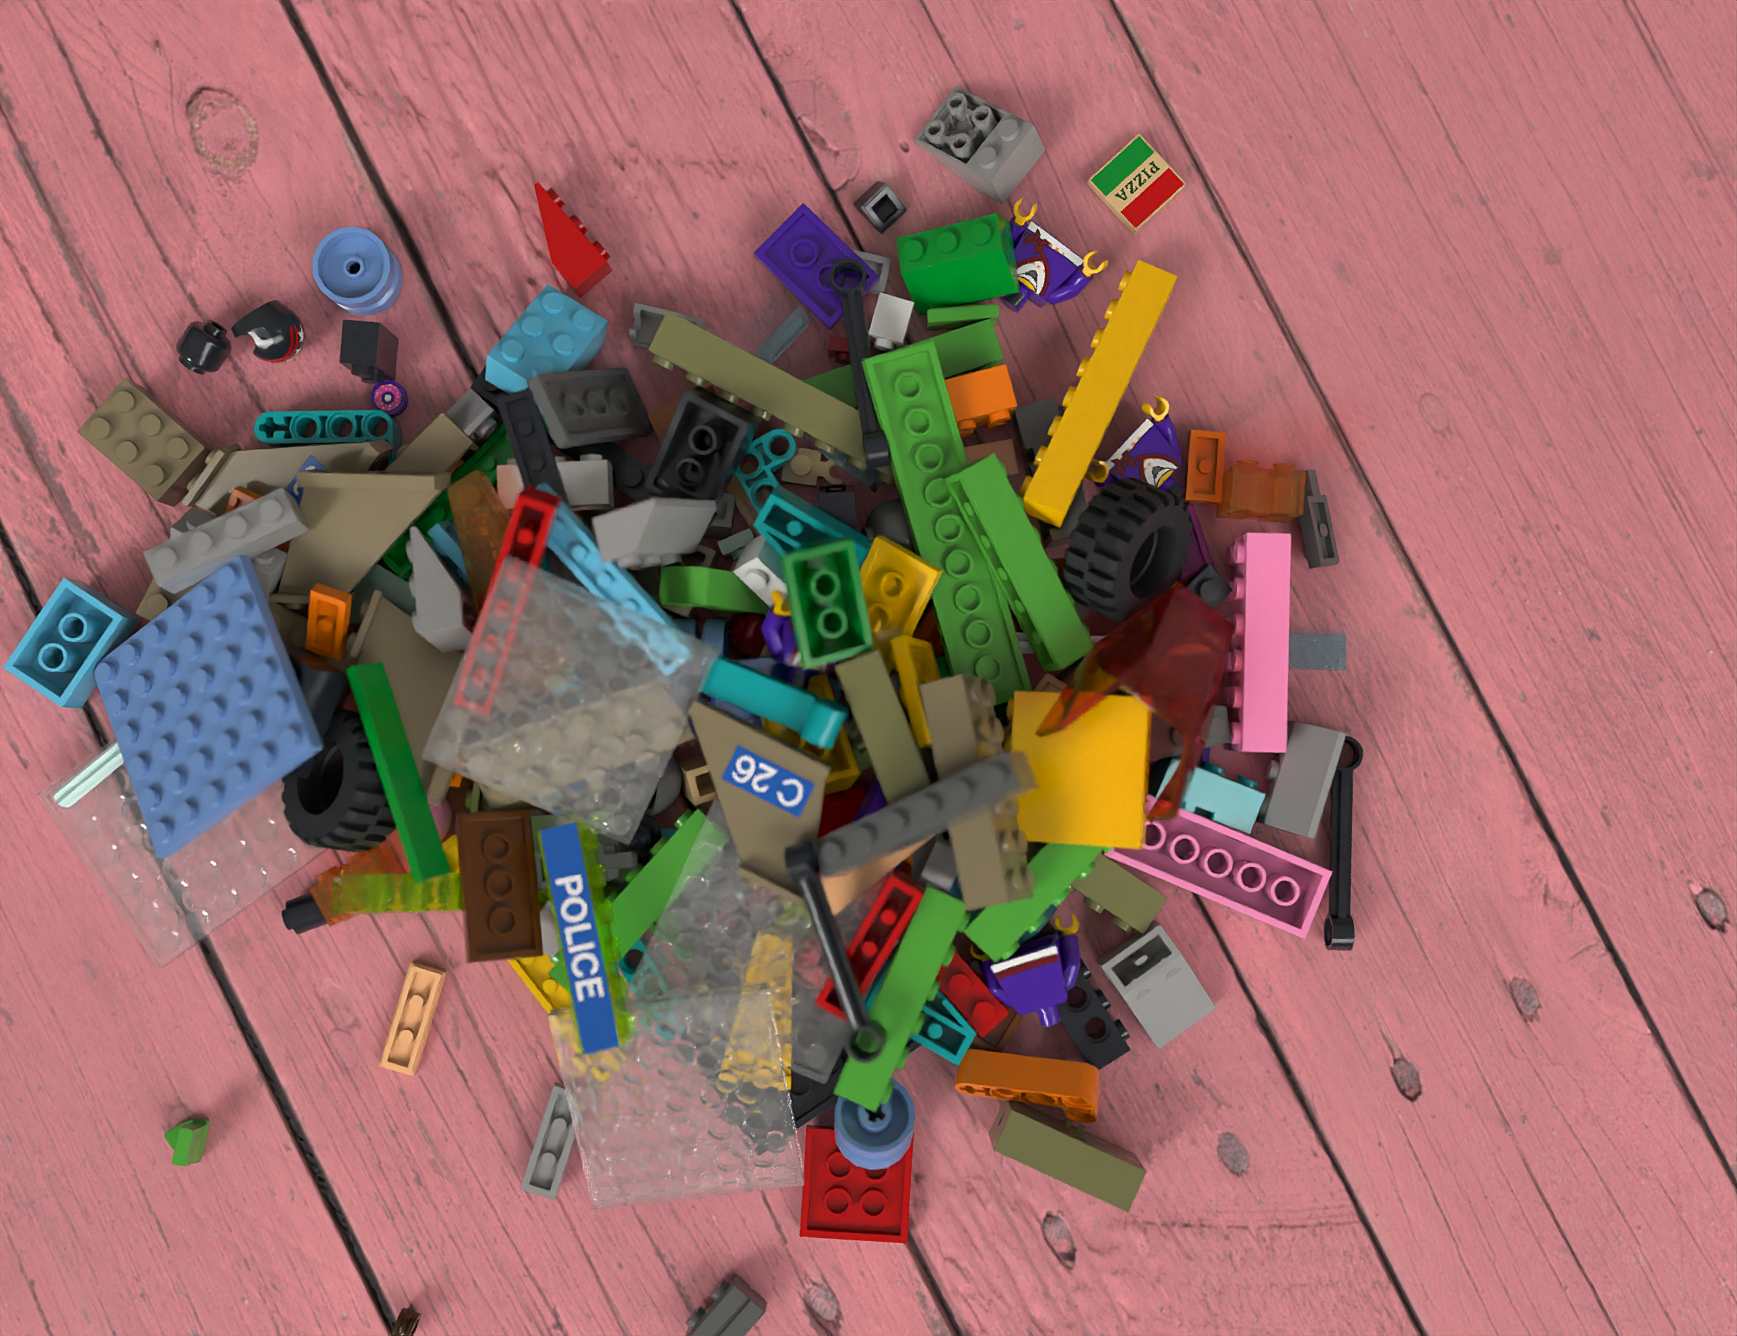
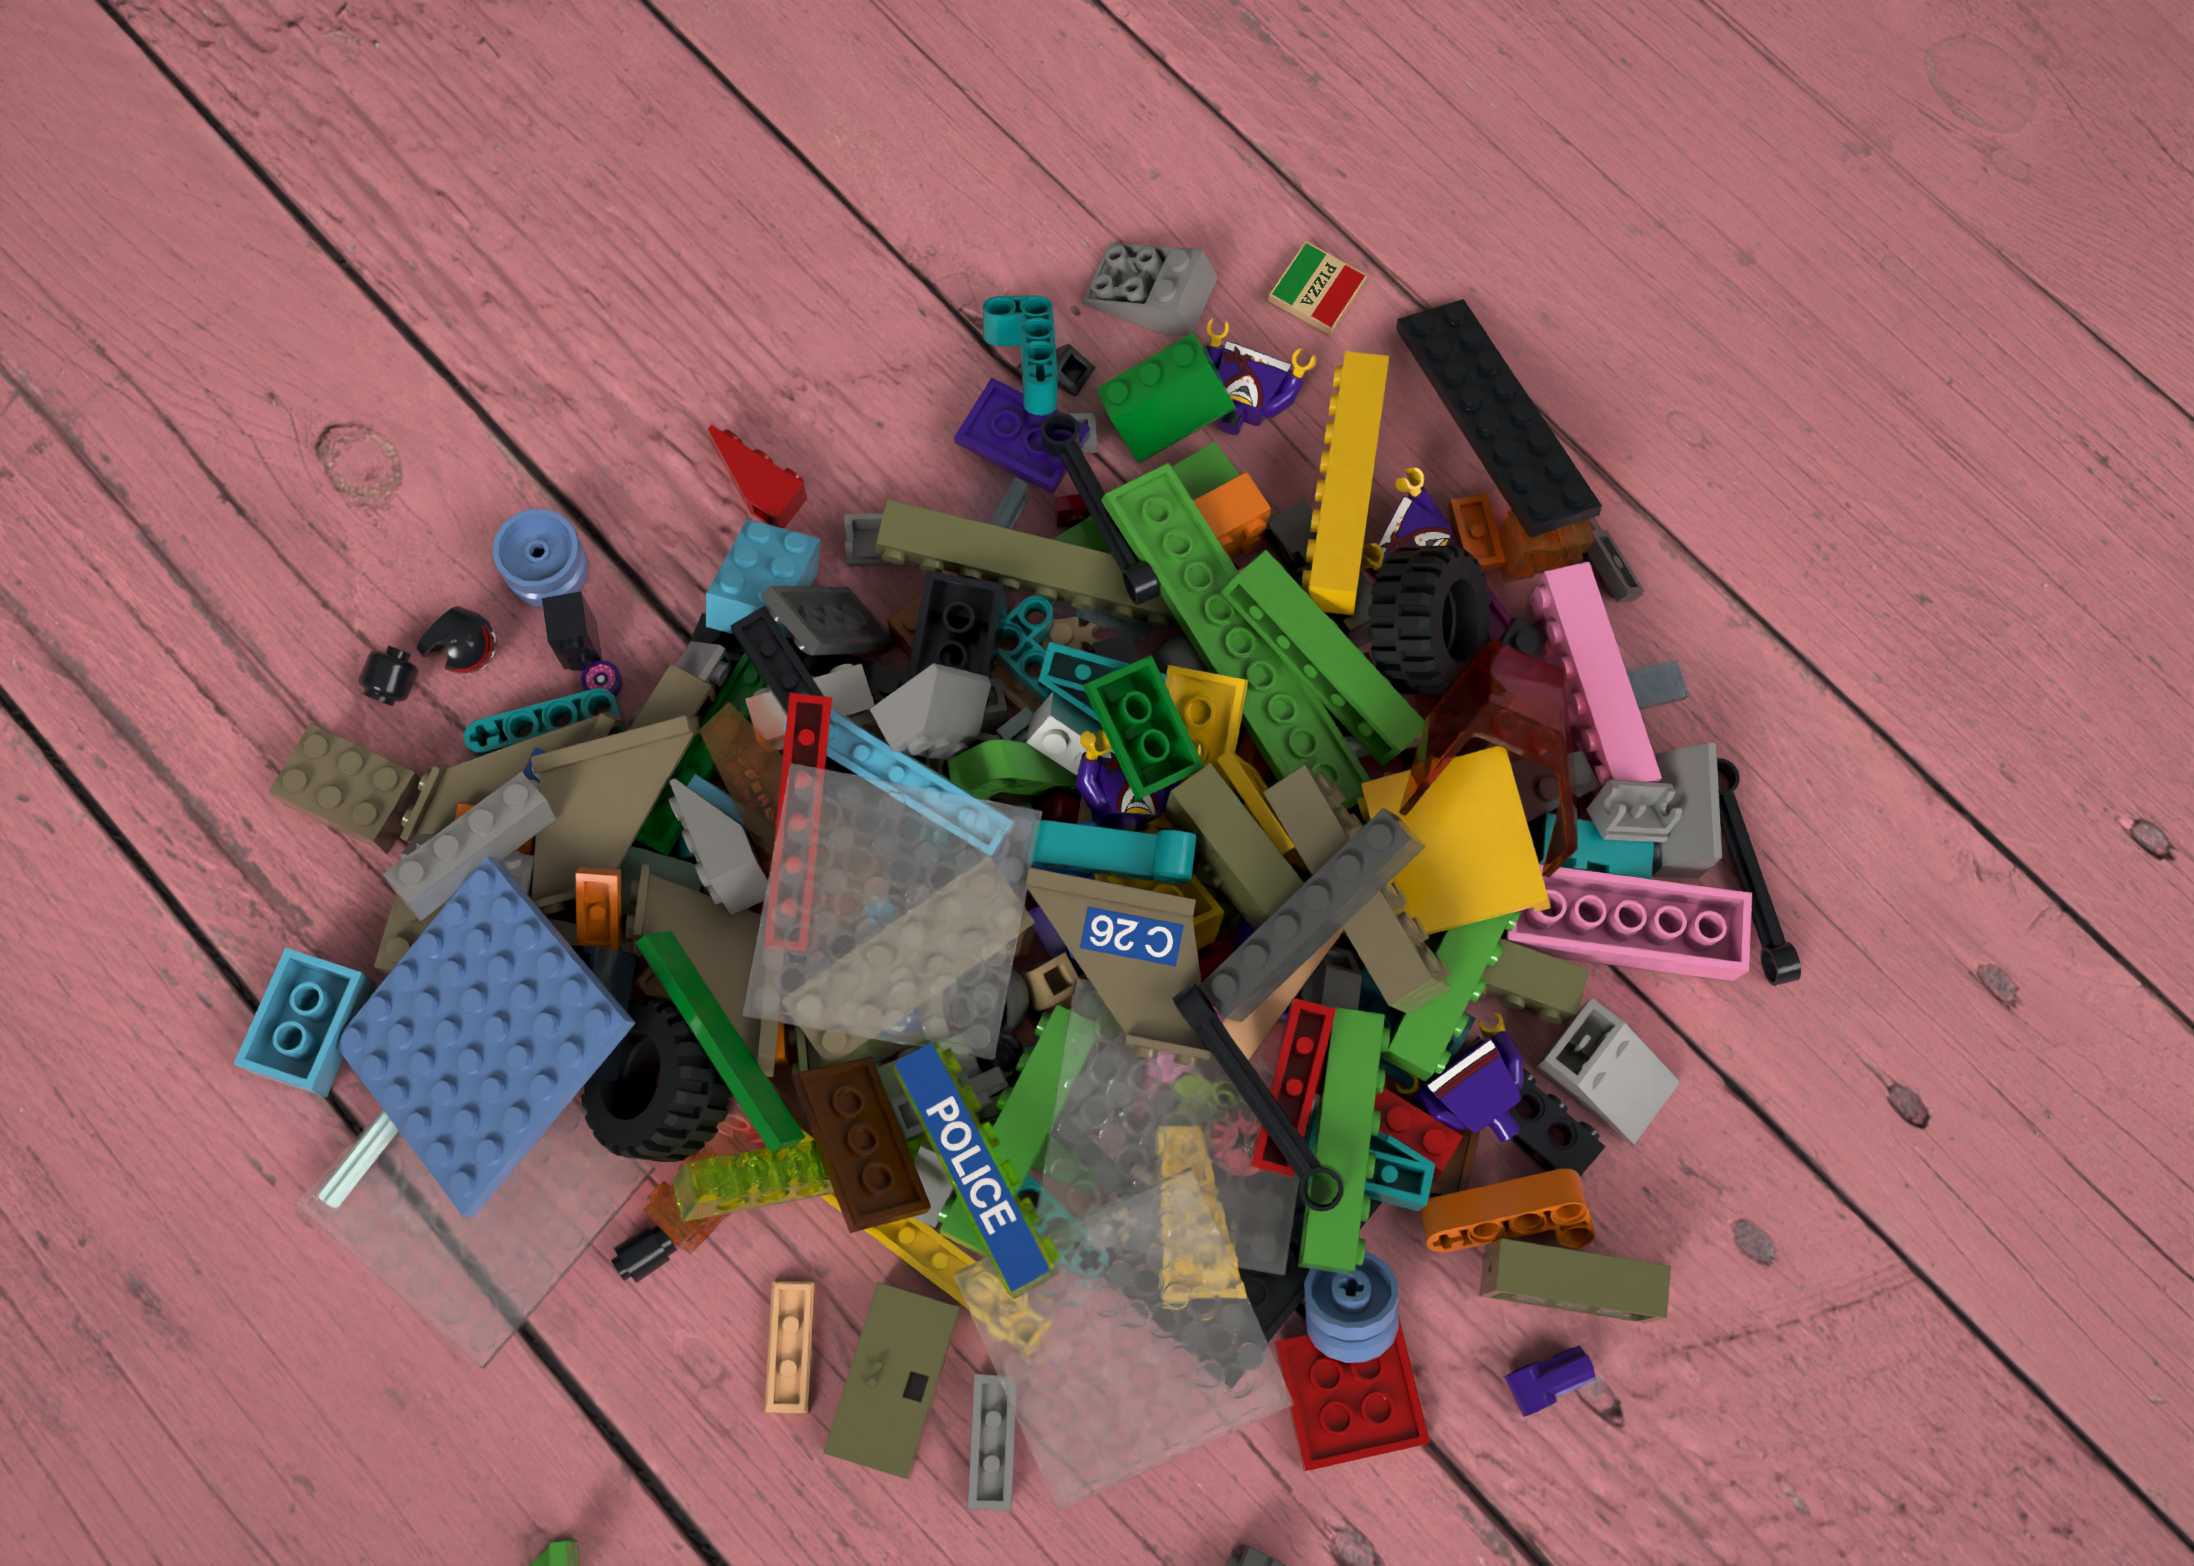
camera: 20 degrees left, 15 degrees down
(485, 1072) = (892, 1381): none -> olive brick
(853, 153) = (1029, 324): none -> teal beam
(890, 322) = (1112, 465): white brick -> none
(960, 316) = (1181, 448): bright green tile -> none
(1012, 1220) = (1541, 1383): none -> dark purple piece
(1252, 774) = (1634, 811): none -> light grey hinge
(1257, 366) = (1498, 419): none -> black plate

